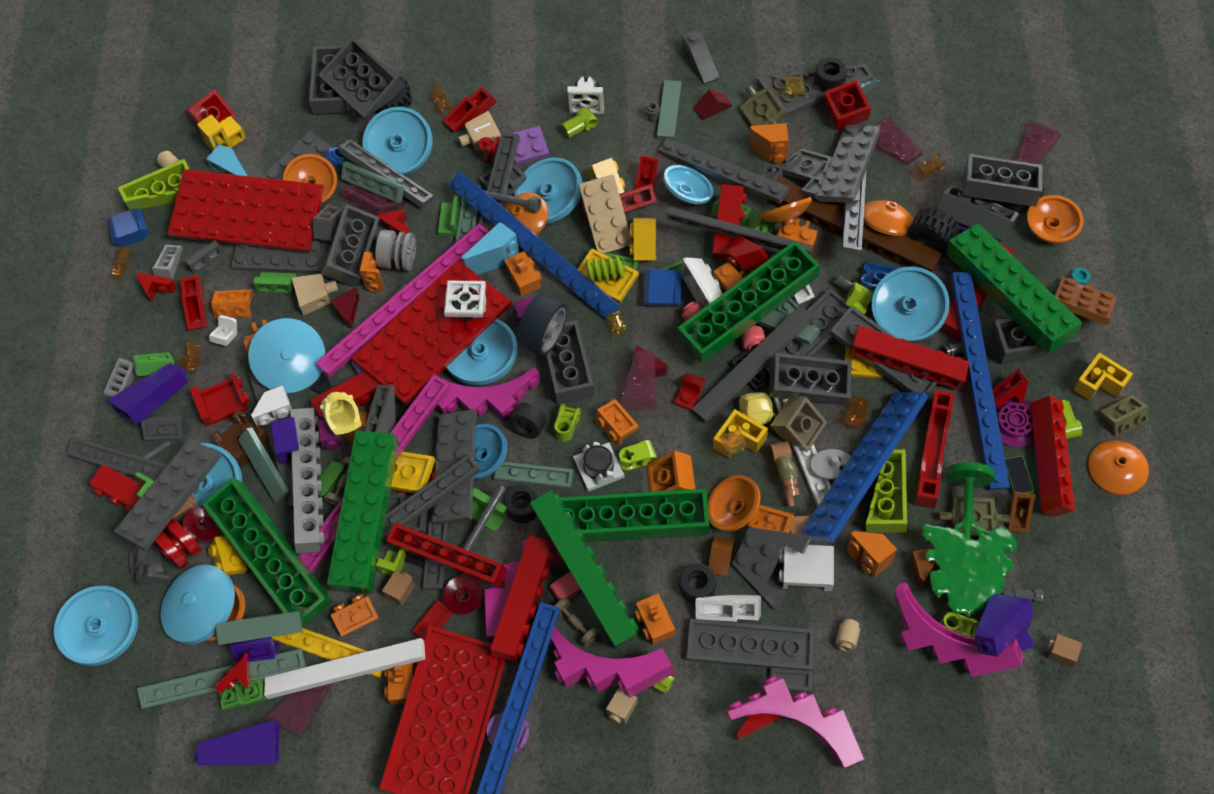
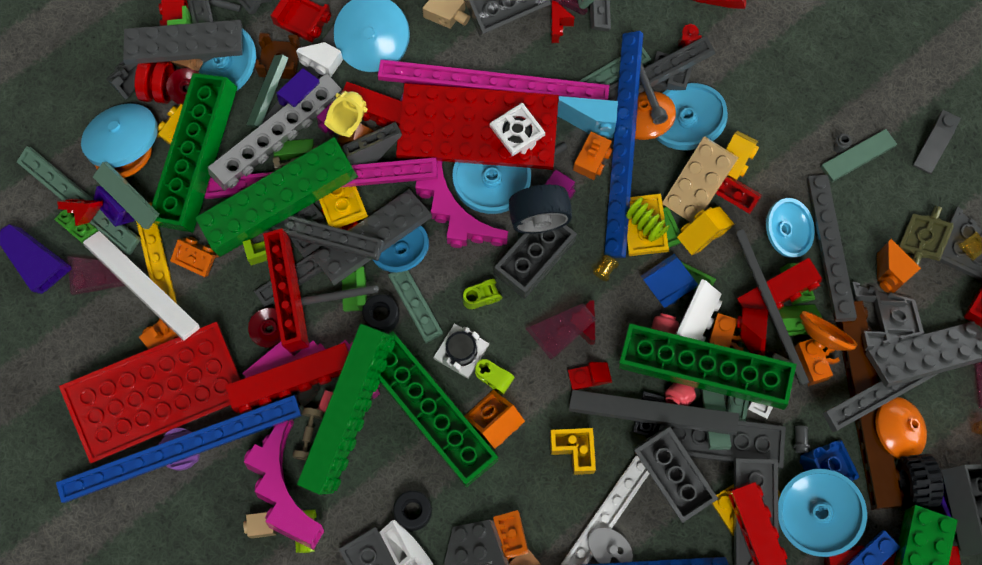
camera: 50 degrees right, 10 degrees up
(96, 625) = (54, 78): medium azure dish -> none
(321, 385) = (371, 80): black tile -> none
(346, 306) = (453, 43): dark red slope -> none
(370, 274) = (494, 37): orange bracket -> none
(395, 250) = (531, 40): light grey wheel -> none
(398, 587) = (239, 273): medium nougat brick -> none
(435, 617) = (232, 320): red tile -> none
(449, 218) = (599, 57): bright green panel -> none
(478, 128) = (704, 16): tan torso -> none
(527, 420) = (456, 262): black tyre -> none
(531, 145) = (723, 67): medium lavender plate -> none
(583, 120) = (783, 92): lime piece -> none
(586, 94) = (808, 77): white piece -> none
(615, 421) = (511, 335): orange bracket -> none
(647, 171) = (774, 185): red slope -> none
(655, 619) = (354, 498): orange brick -> none
(711, 104) = (896, 187): dark red slope -> none
(721, 555) = (453, 511): dark orange slope -> none
(733, 442) = (558, 450): clear yellow plate -> none
(733, 503) = (505, 490): orange dish -> none
(757, 407) = (615, 444): light yellow helmet -> none
(786, 469) = (572, 512): nougat piece -> none
(799, 422) = (625, 493): dark tan slope -> none
(857, 412) = (677, 537): clear orange bracket -> none
(859, 297) = (794, 460): lime panel -> none

